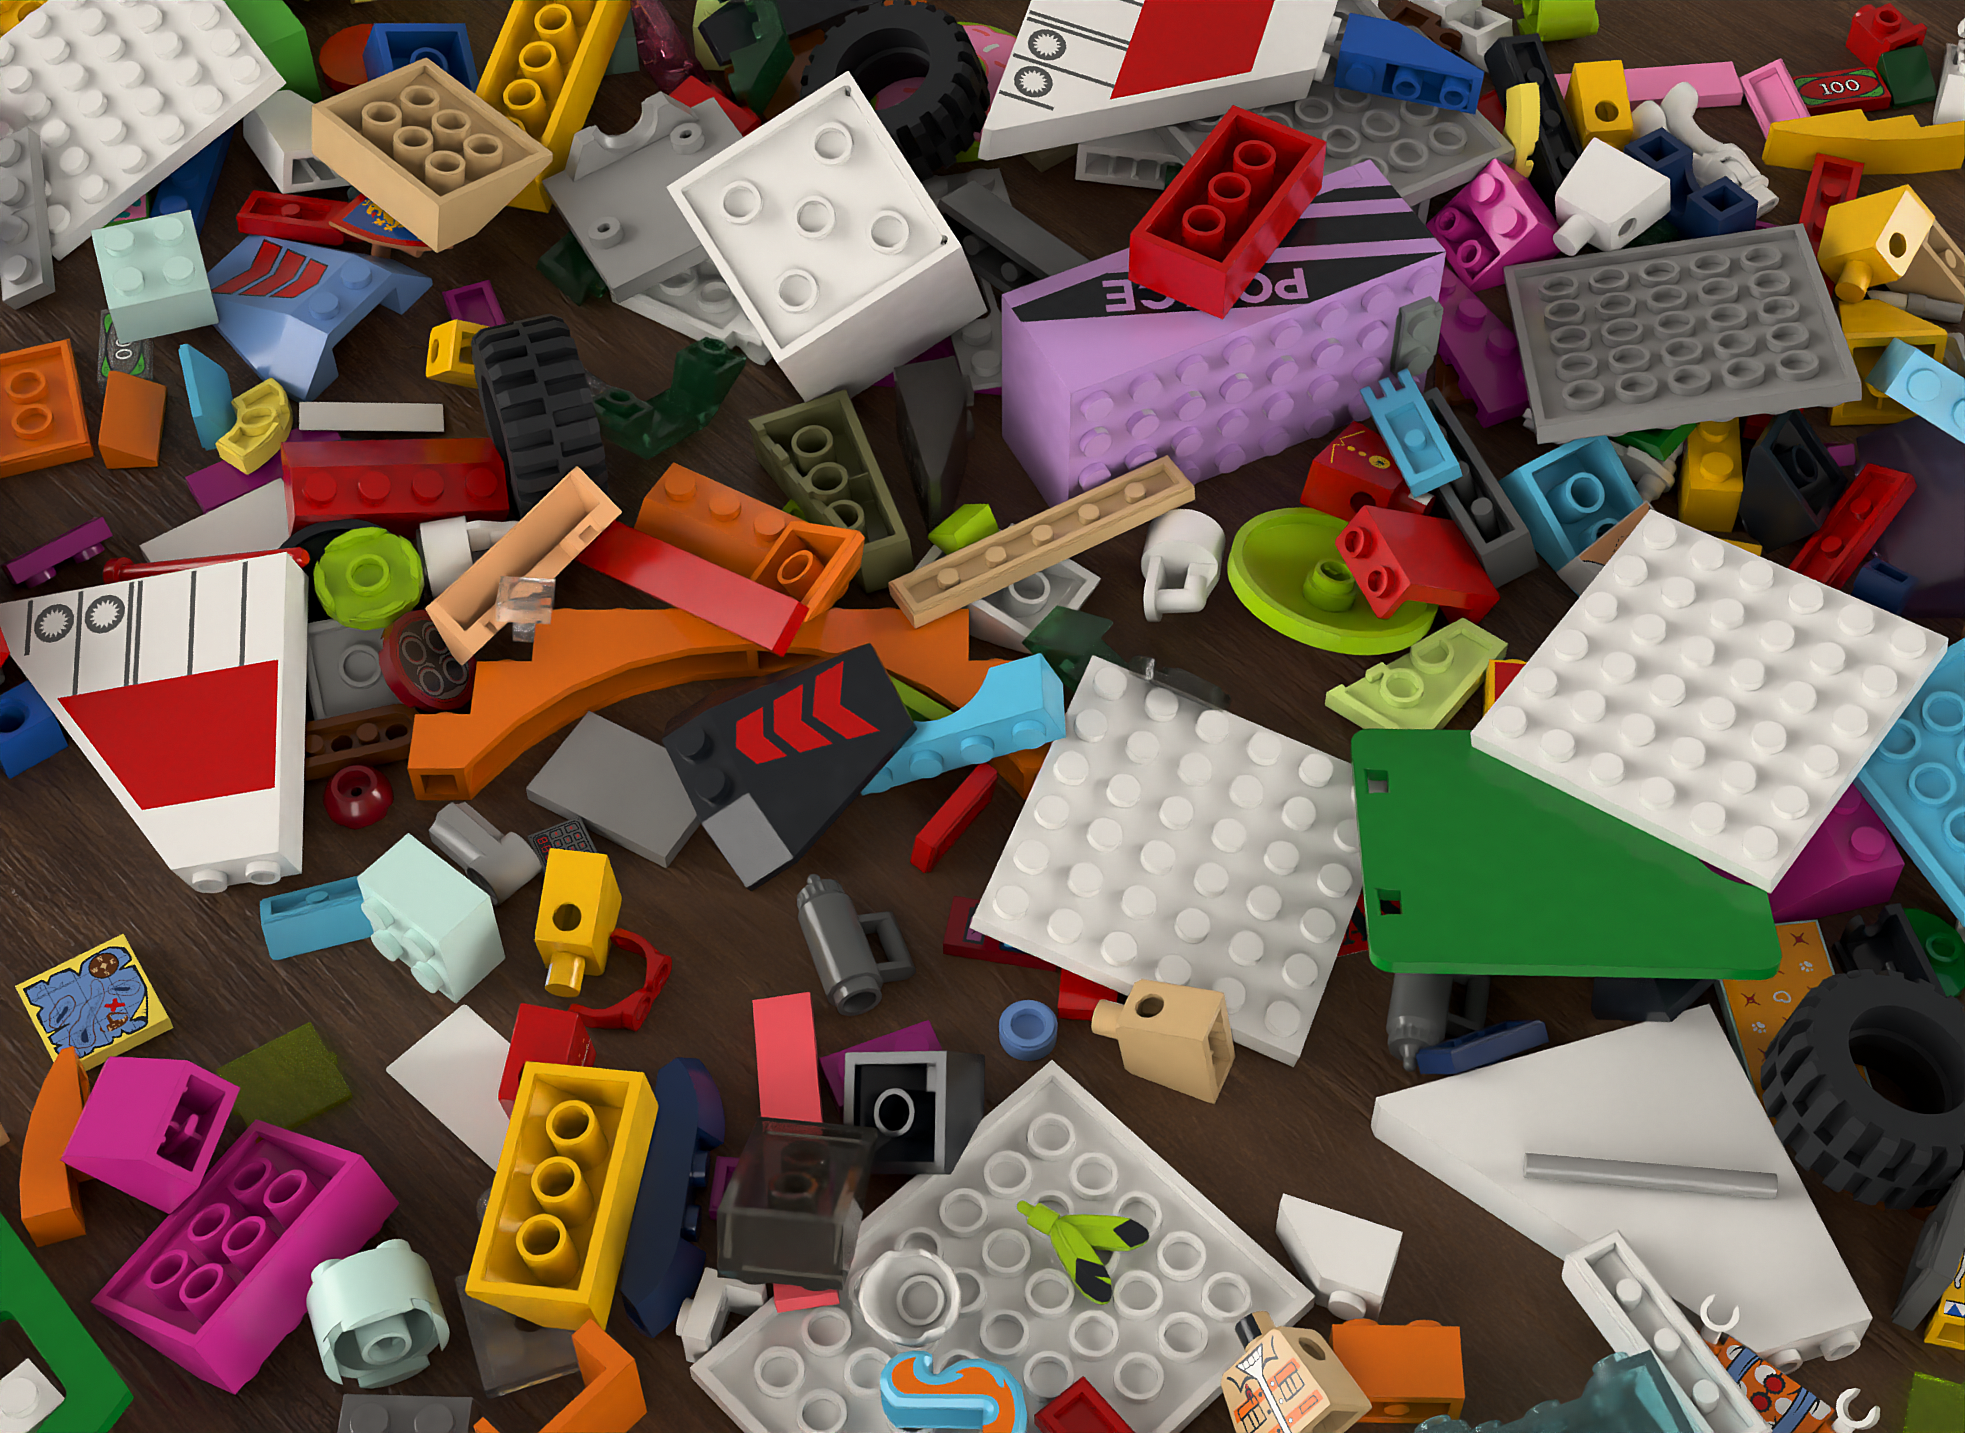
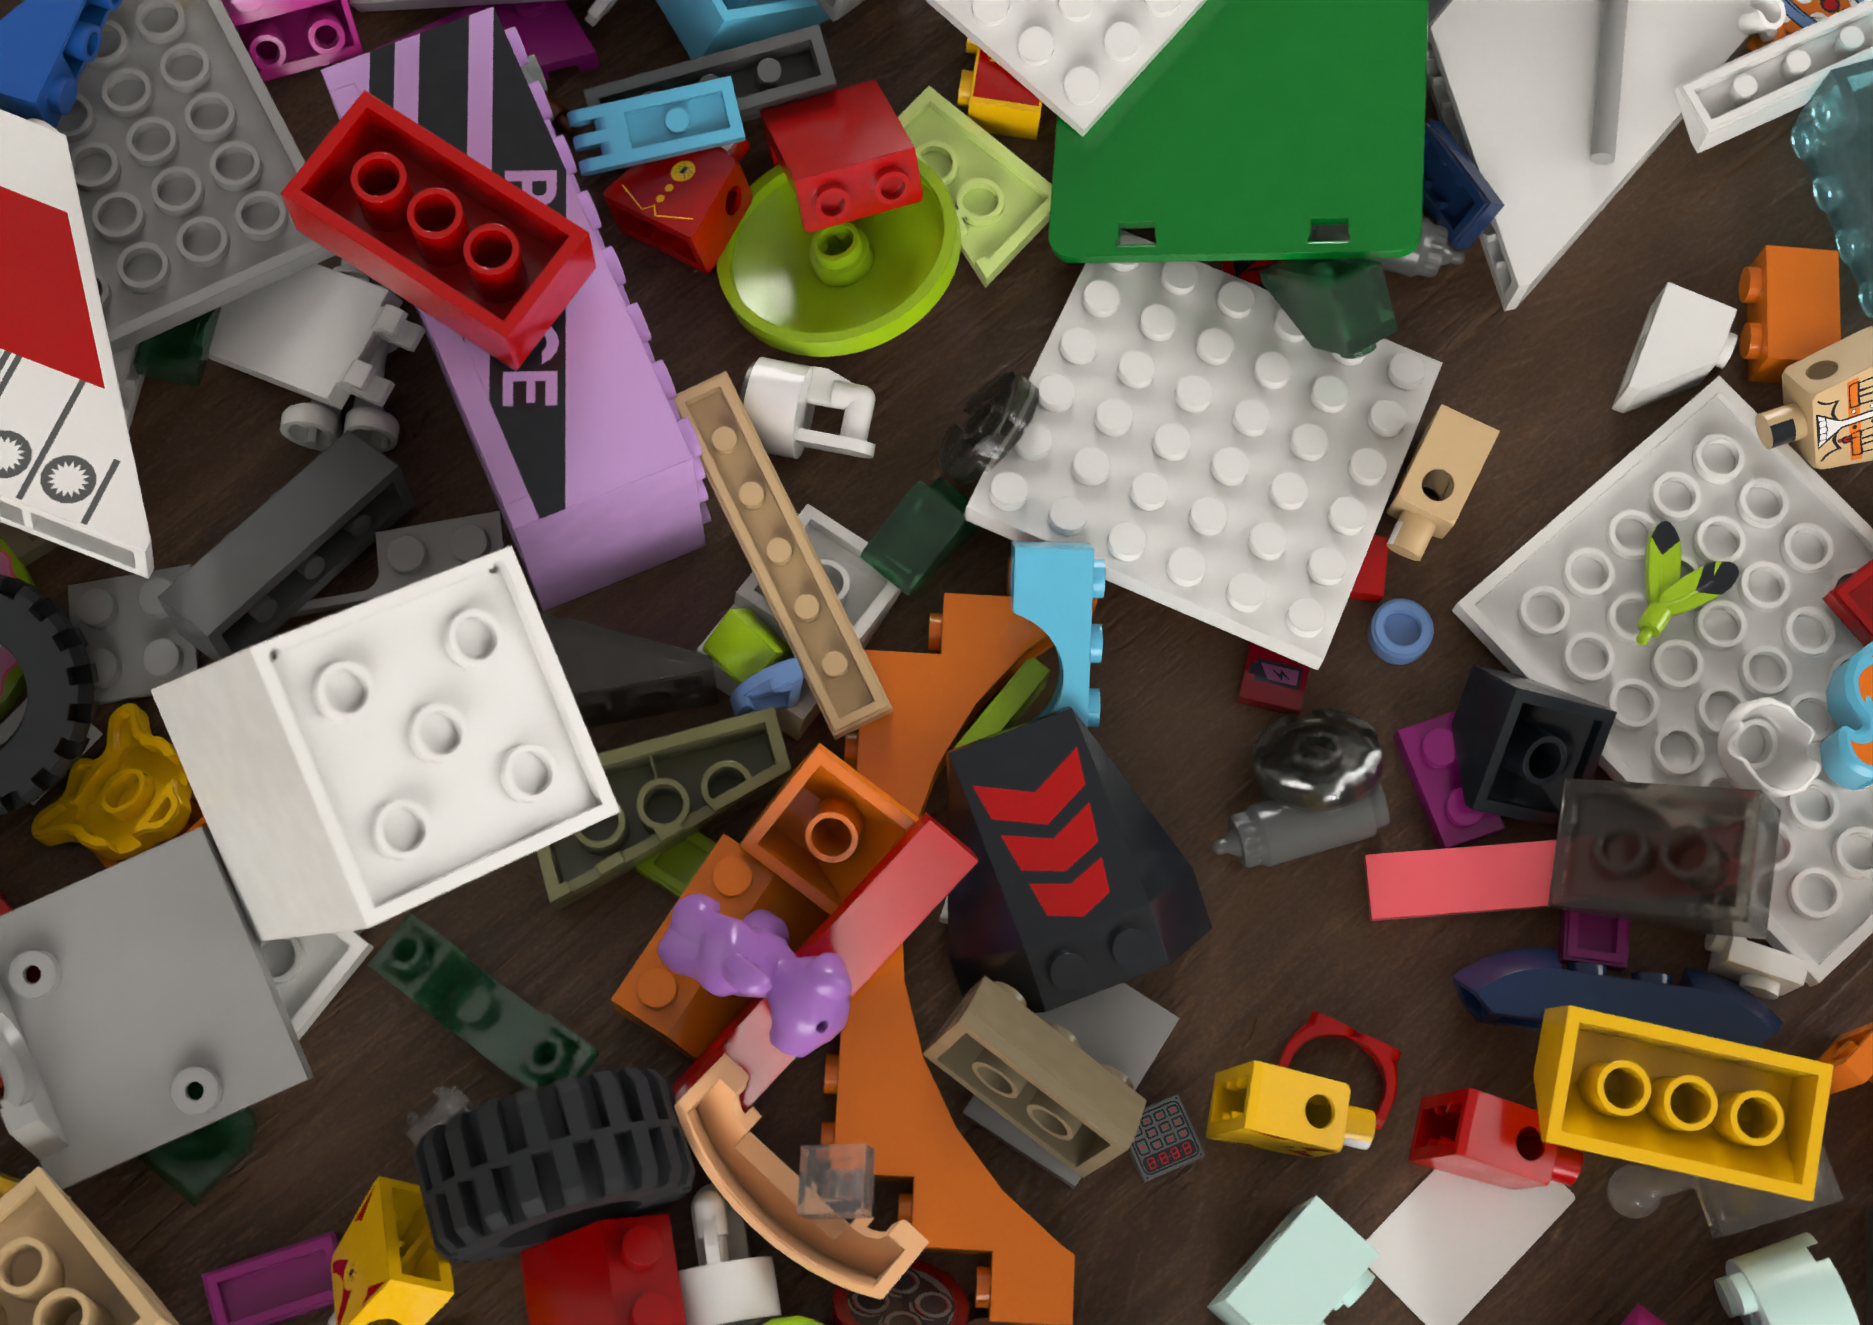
camera: 95 degrees left, 20 degrees up
(490, 859) = (1180, 1221): light grey piece -> none
(605, 721) = (1038, 1077): none -> dark tan slope
(665, 545) = (752, 959): none -> medium lavender animal
(892, 944) = (1318, 760): none -> clear smoke tile
(926, 541) = (770, 687): none -> medium blue tile
(954, 817) = (1144, 691): red tile -> none
(1324, 935) = (1334, 302): none -> clear green slope

